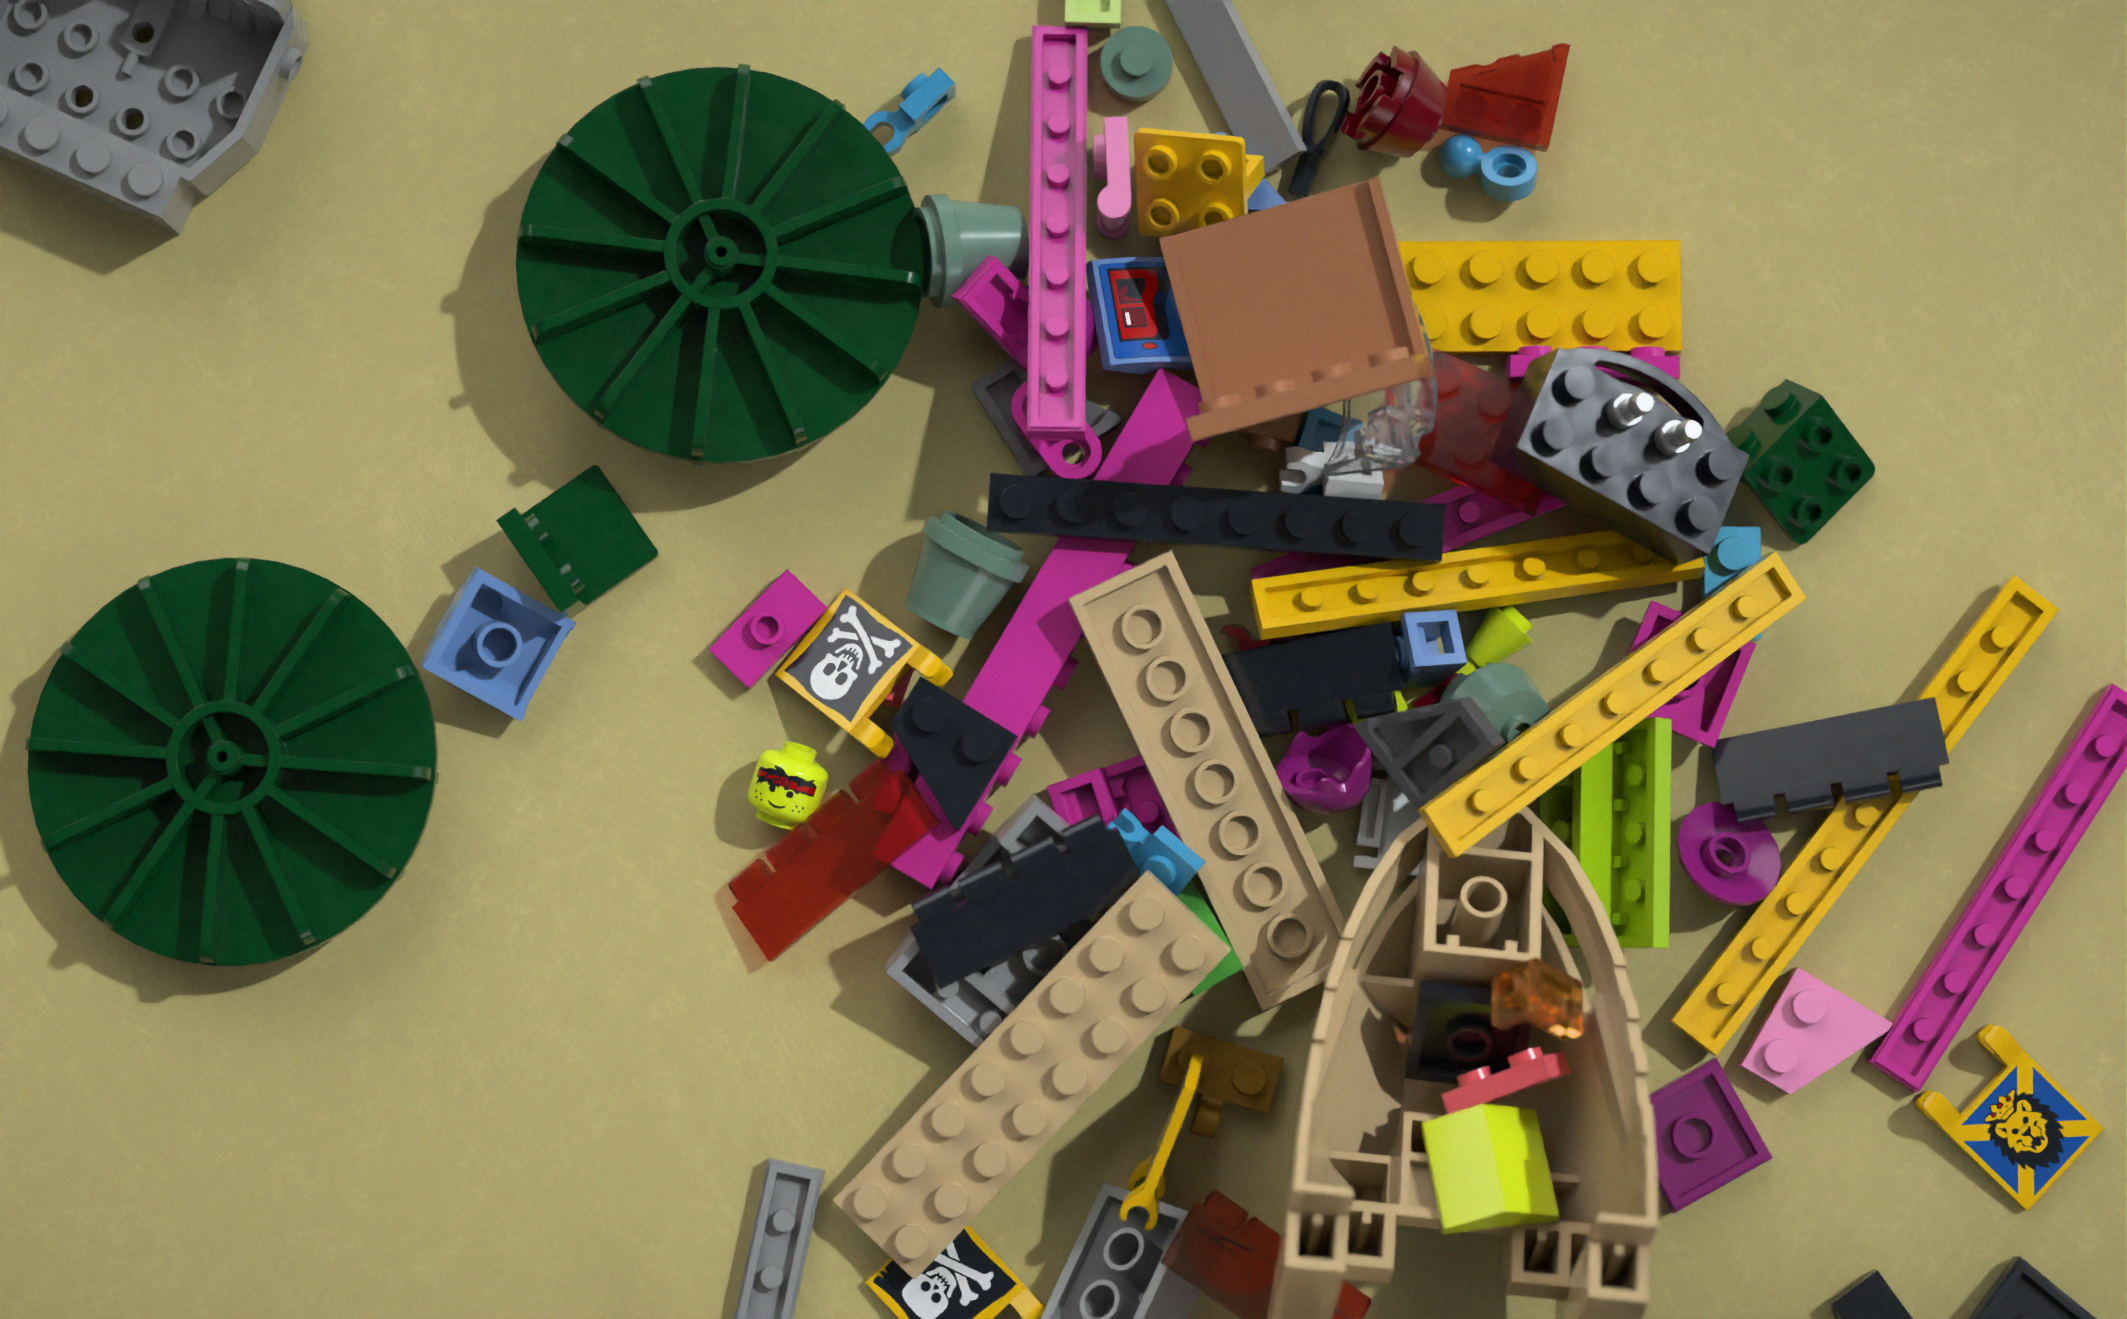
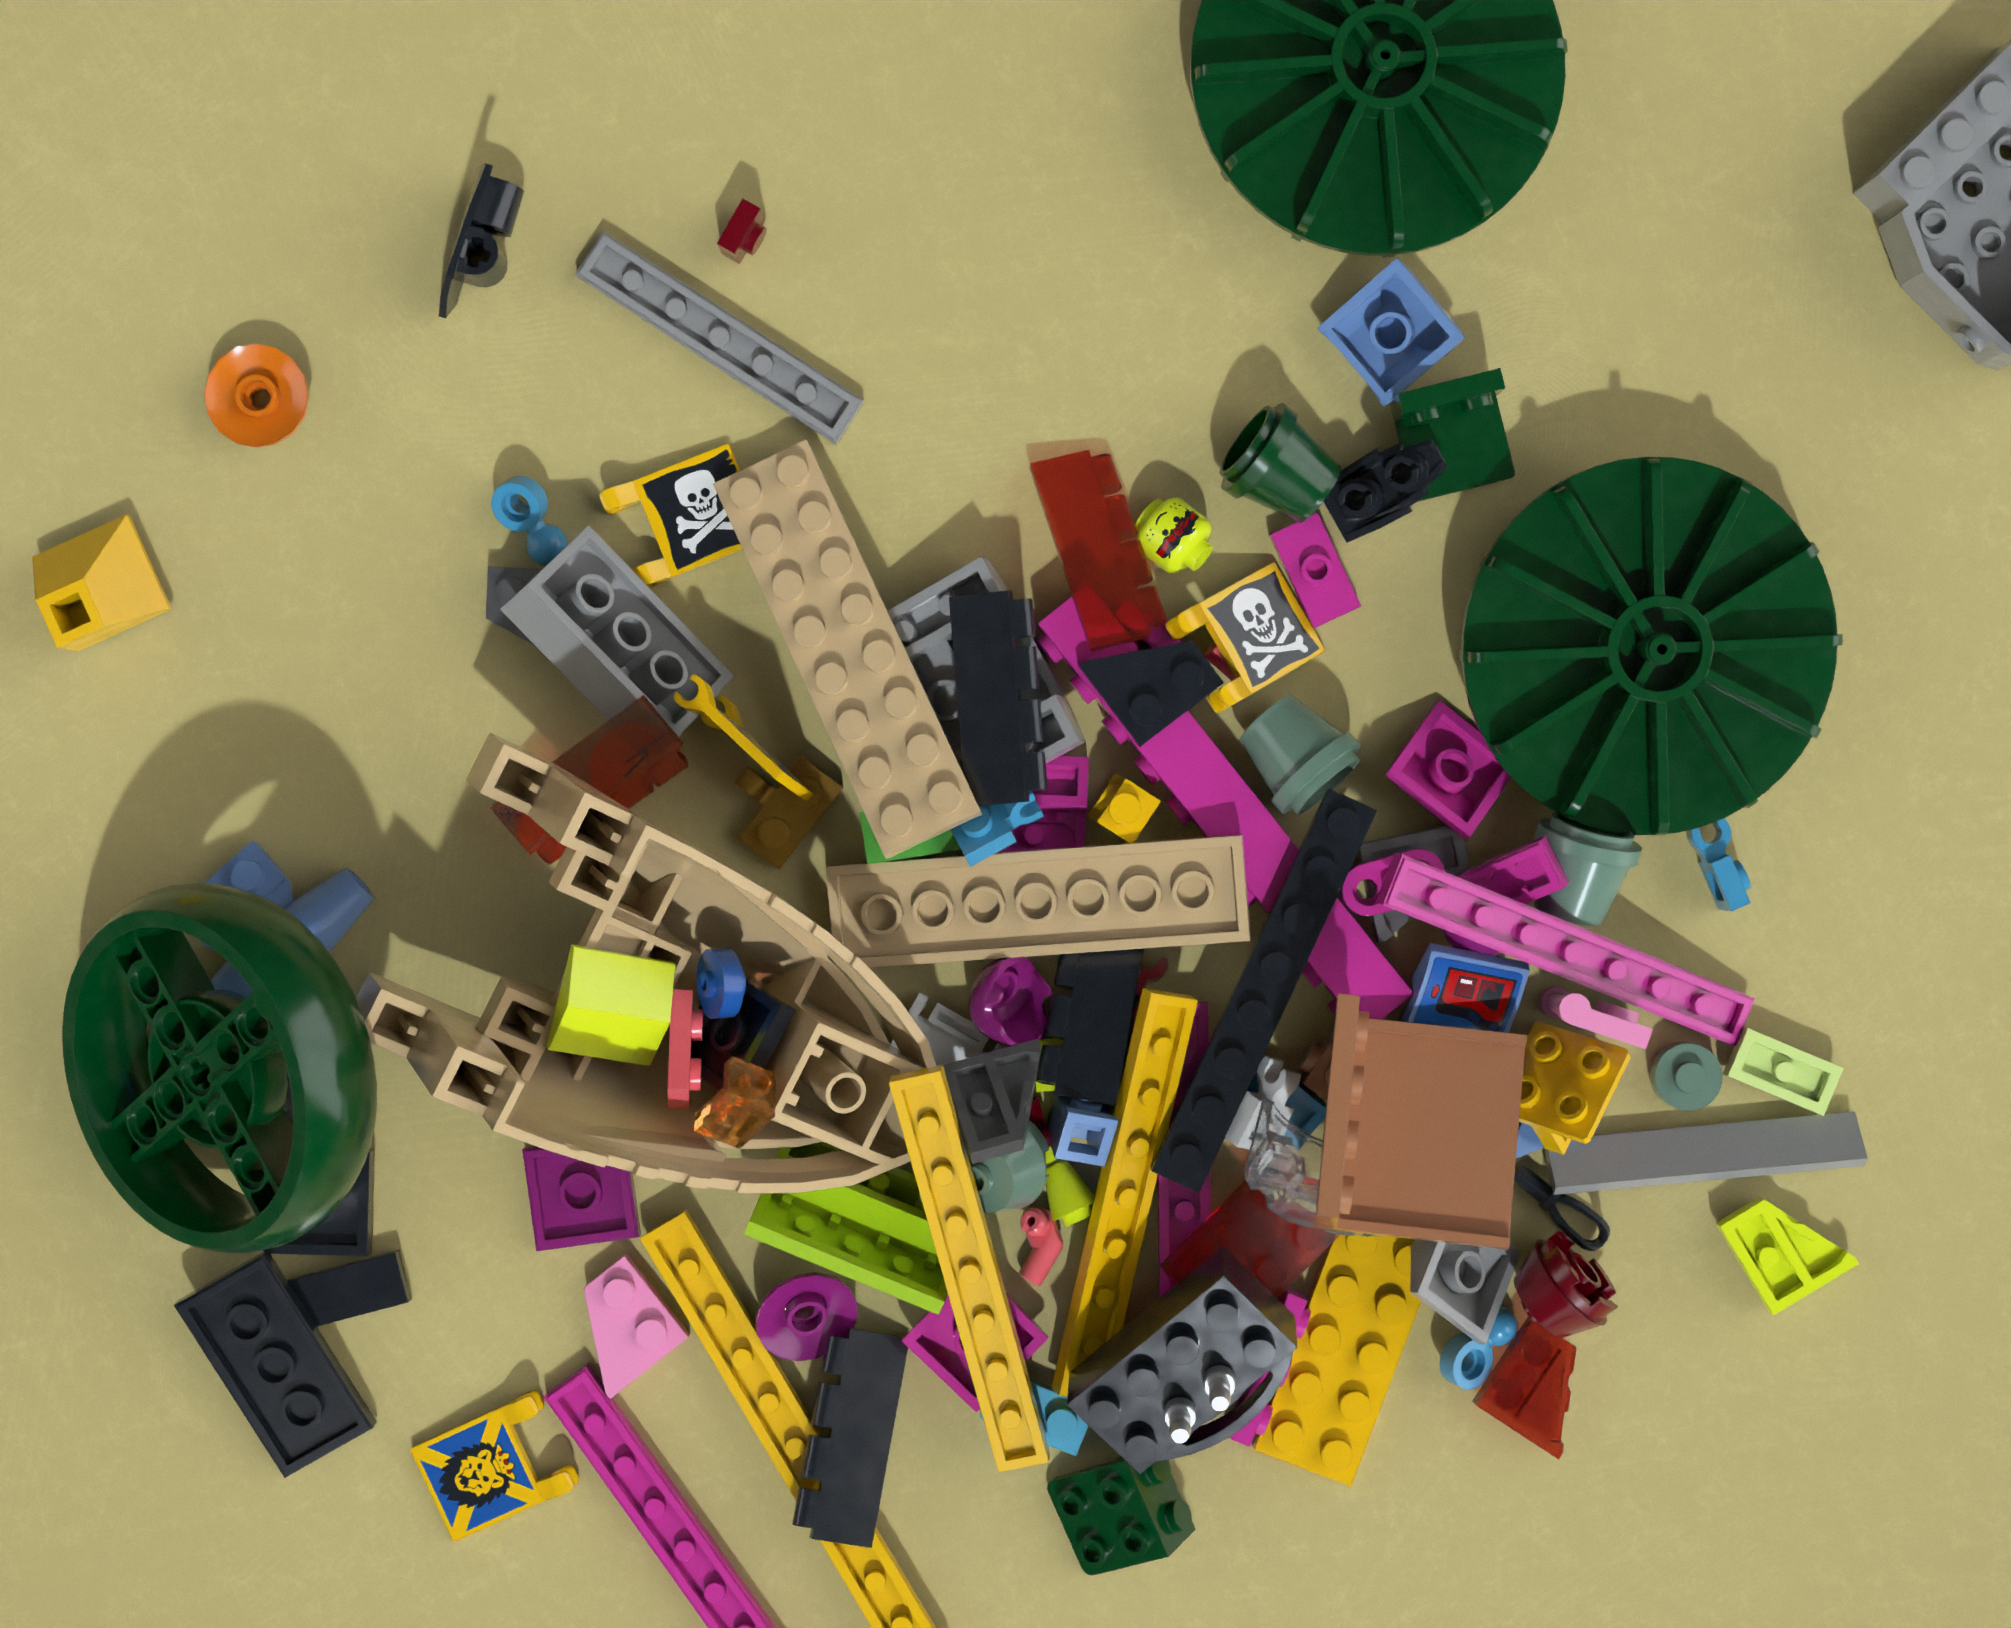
camera: 115 degrees right, 5 degrees up
(659, 594) = (1383, 487): none -> black connector
(676, 706) = (1279, 465): none -> dark green piece
(920, 417) = (1449, 770): none -> dark pink slope
(1086, 730) = (1123, 808): none -> yellow brick
(1423, 1068) = (720, 983): none -> blue wheel
(1430, 207) = (1462, 1282): none -> light grey slope
(1557, 641) = (1045, 1244): none -> coral arm

